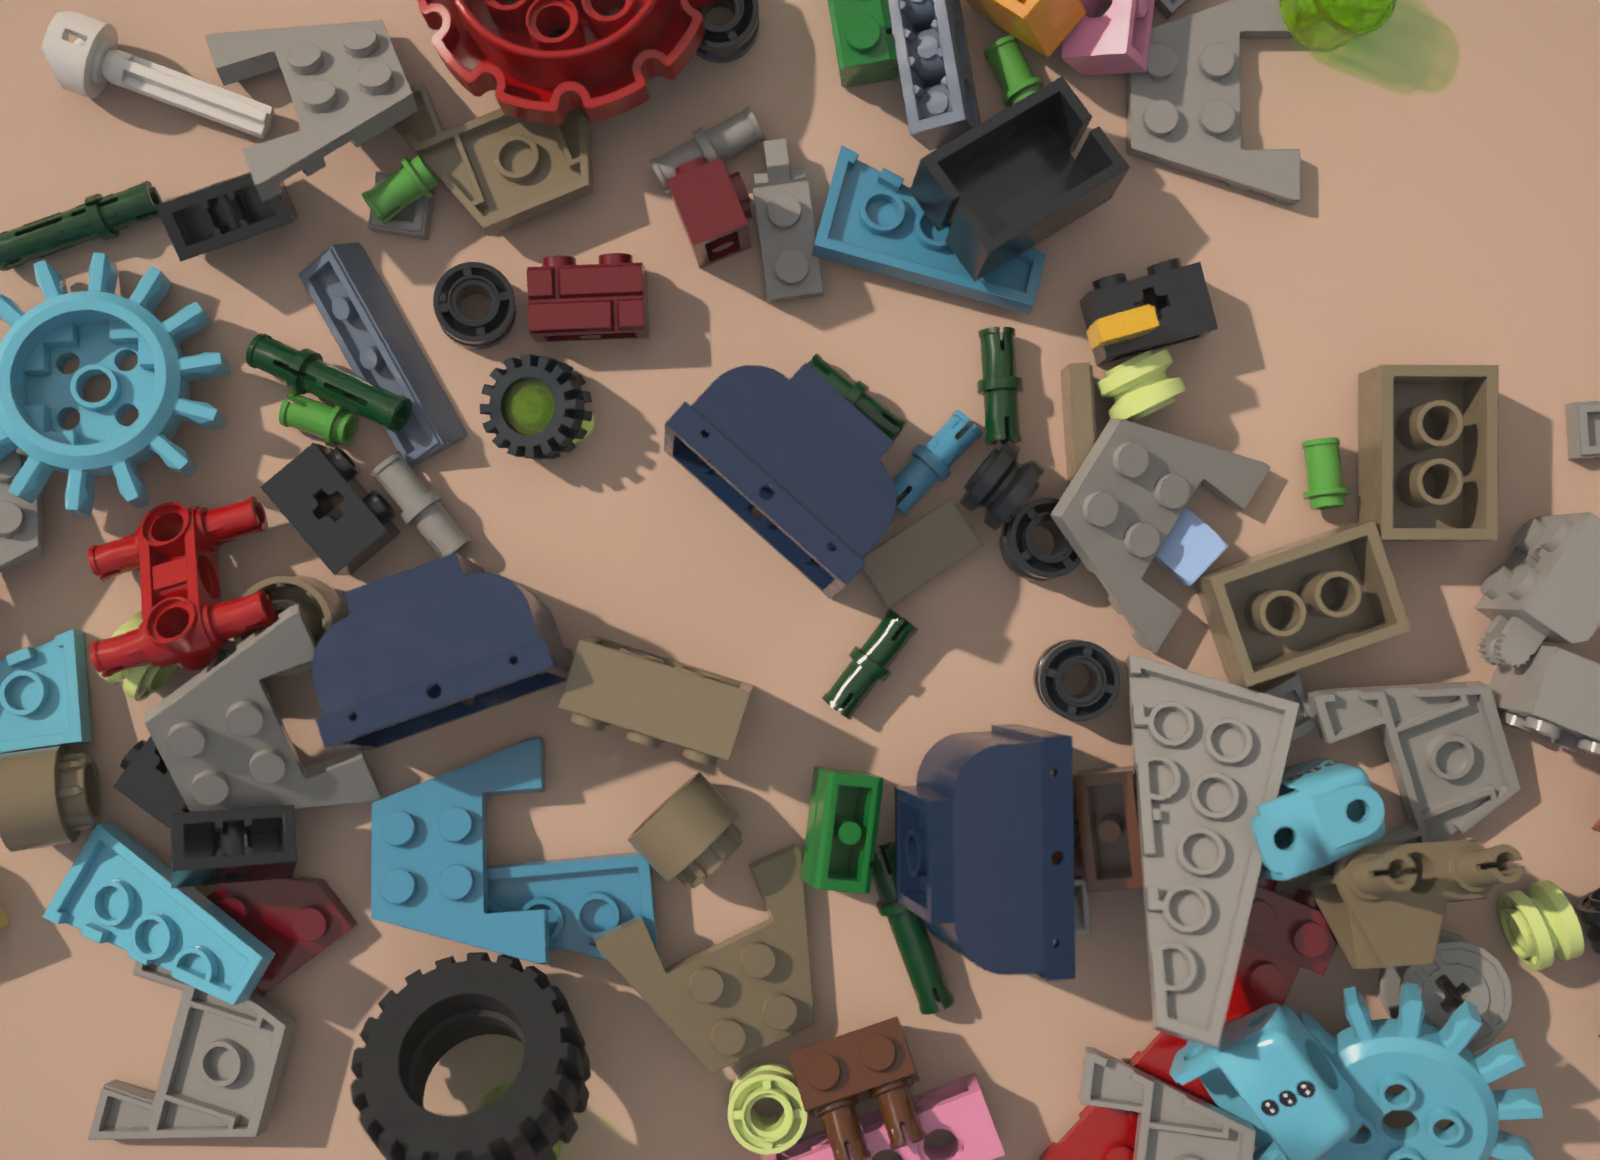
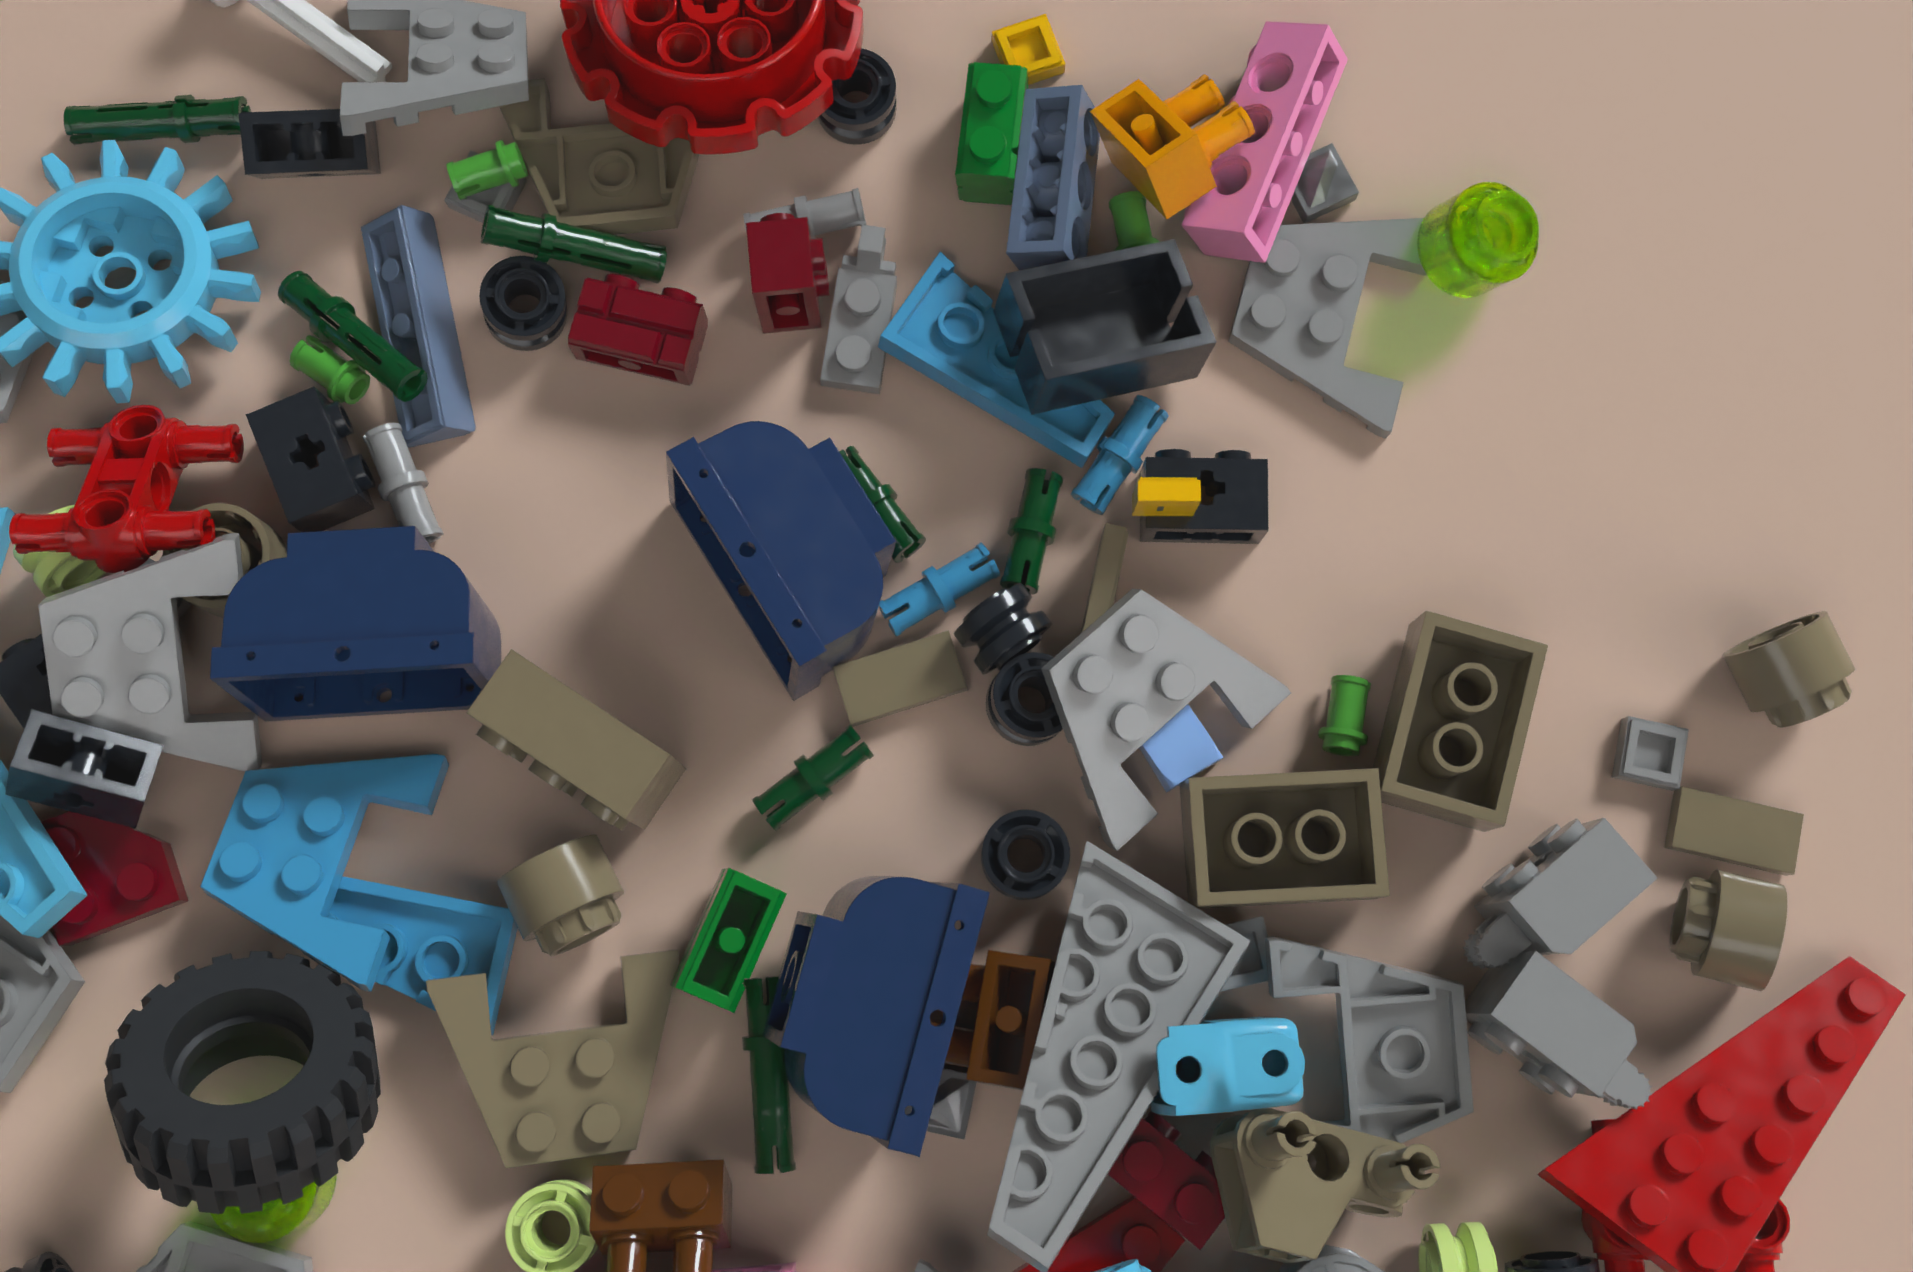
camera: 20 degrees right, 10 degrees down
(491, 240) = (563, 242): none -> dark green pin
(536, 407) = (551, 418): black wheel -> none
(1060, 291) = (1119, 454): none -> dark azure pin
(1140, 386) = (1175, 568): yellowish green wheel -> none

